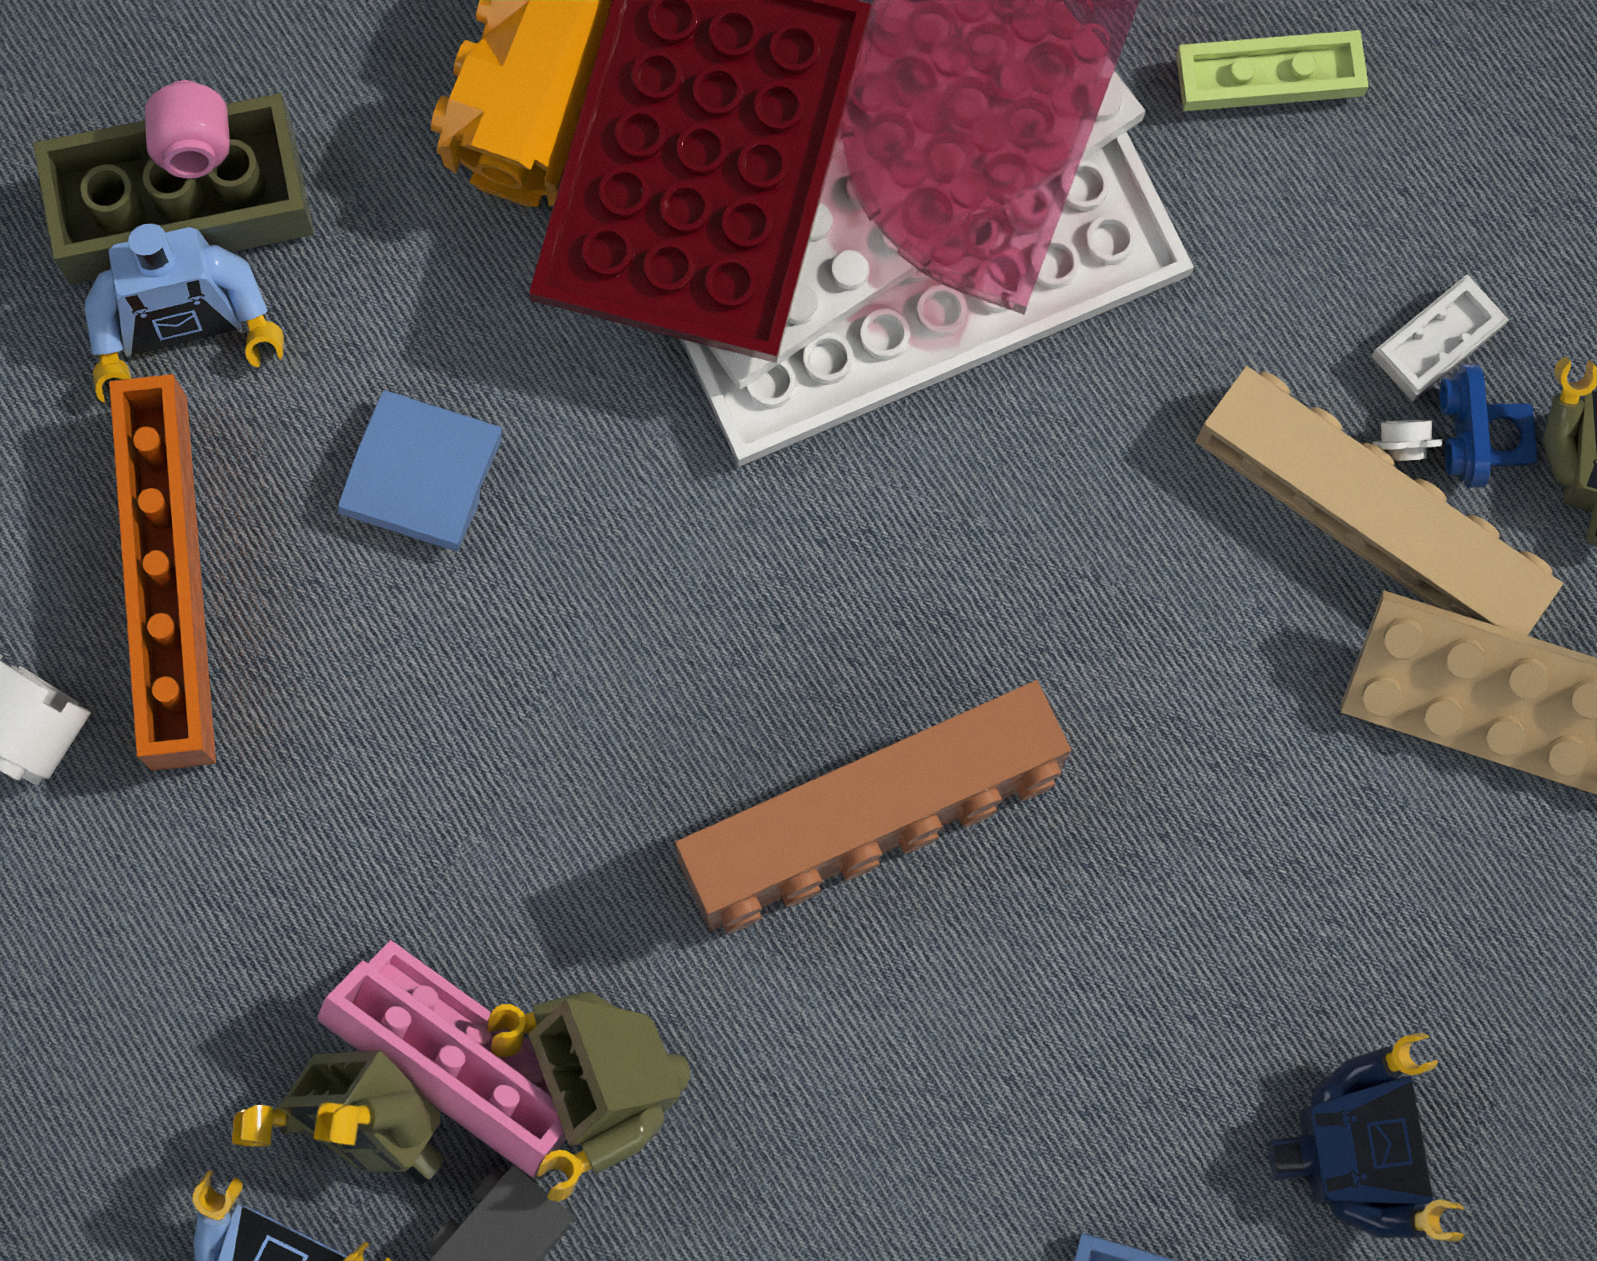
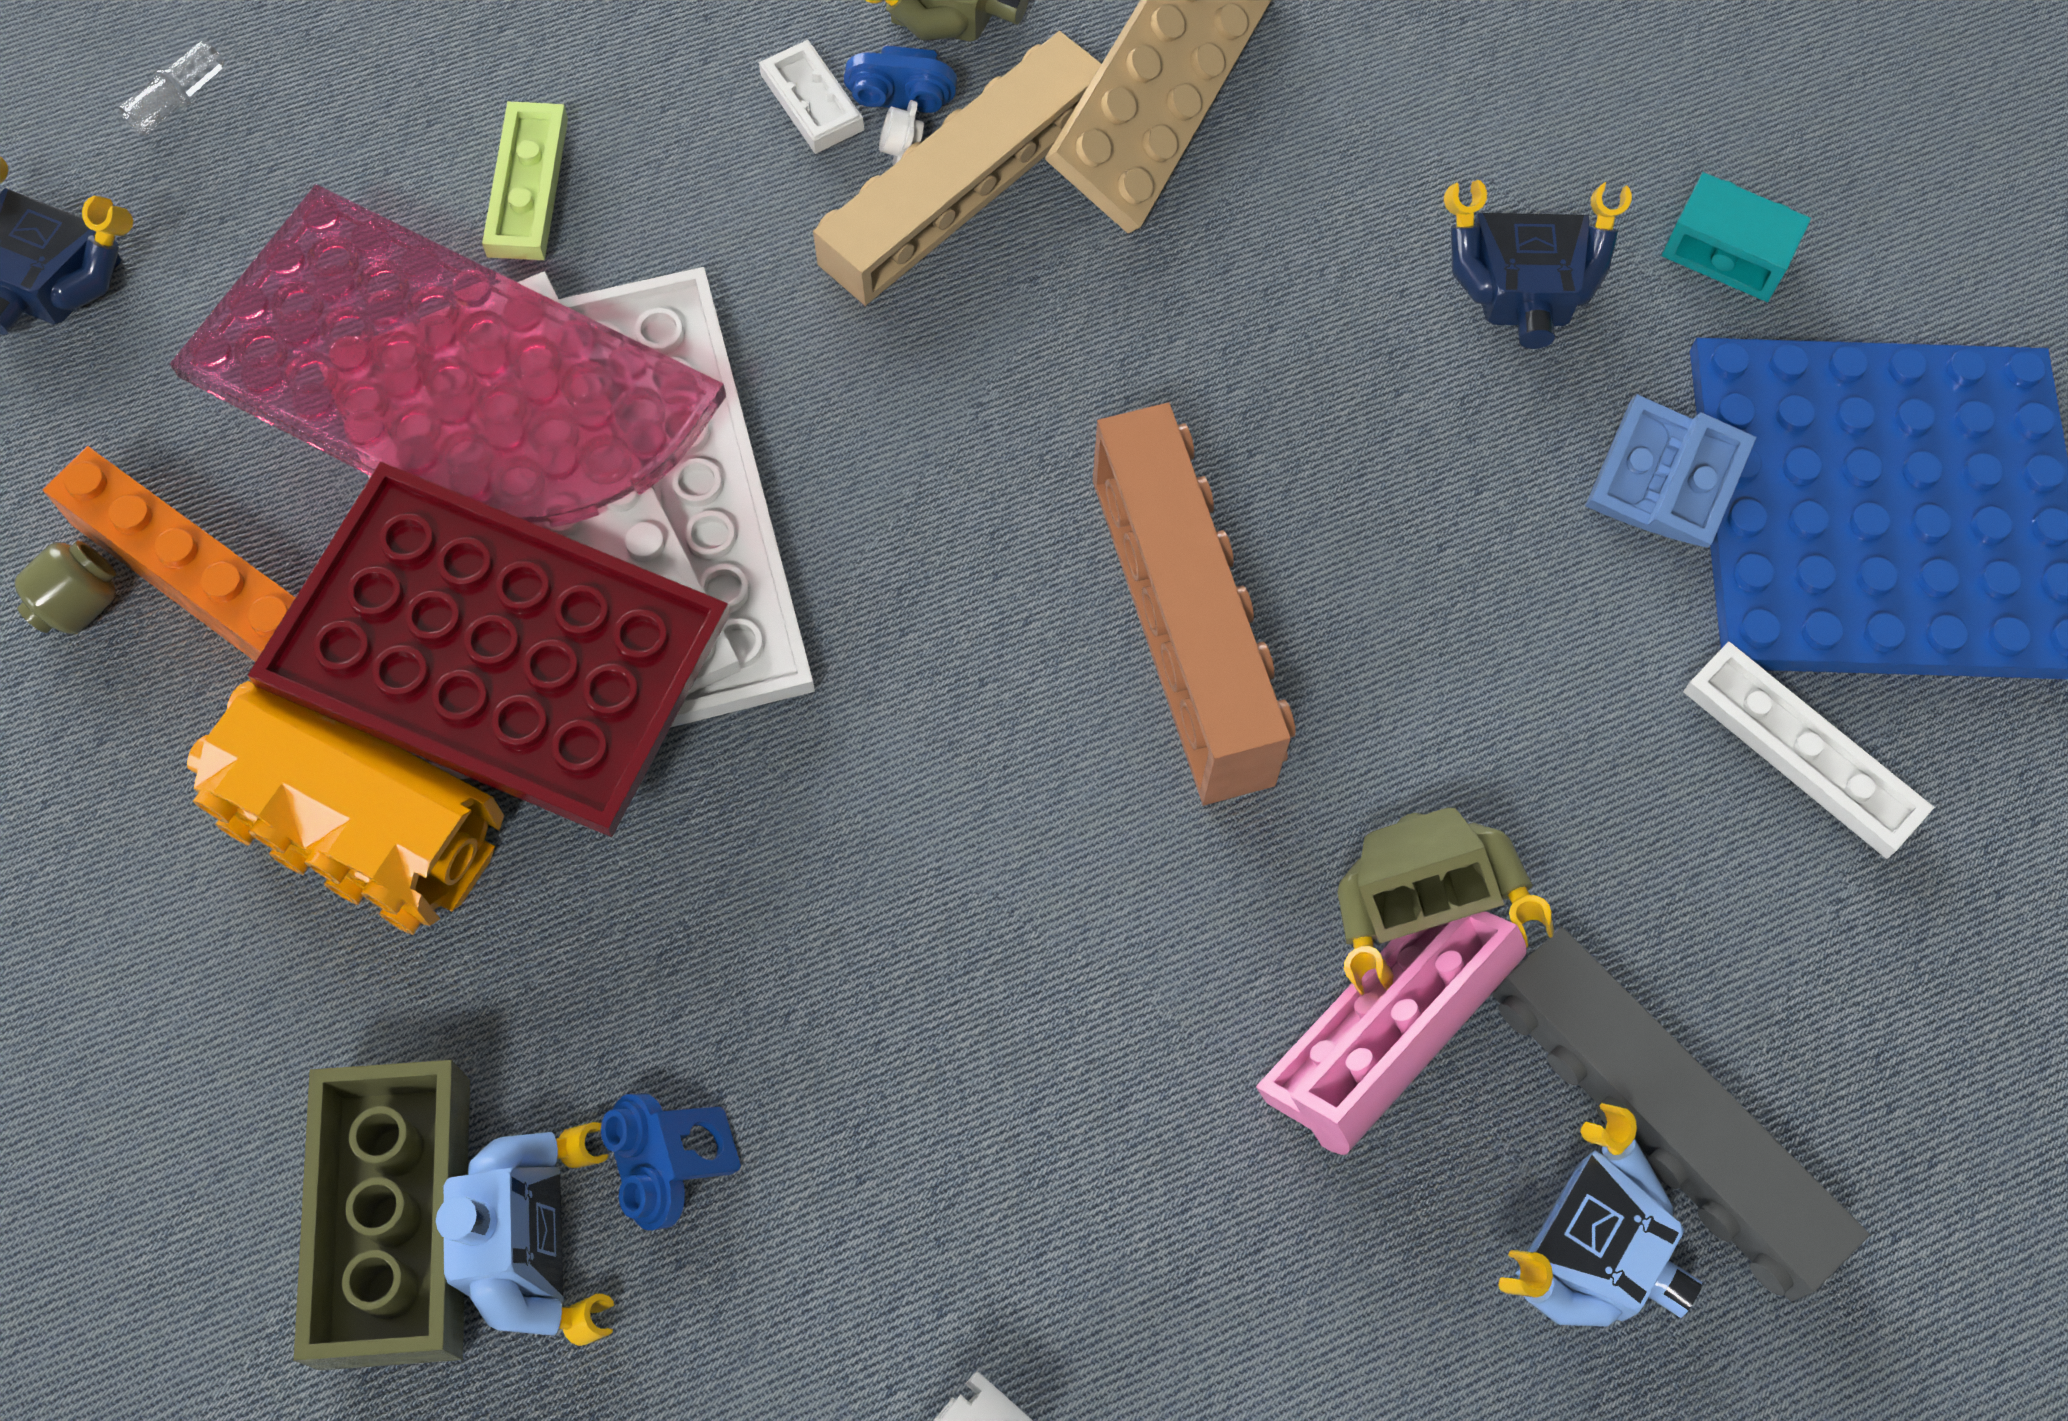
camera: 80 degrees left, 10 degrees down
(162, 573) = (825, 1274): orange brick -> none
(187, 129) = (330, 1165): bright pink head -> none
(255, 404) = (653, 1156): none -> blue bracket
(358, 1110) = (1438, 1130): olive torso -> none
(420, 470) = (760, 996): medium blue slope -> none

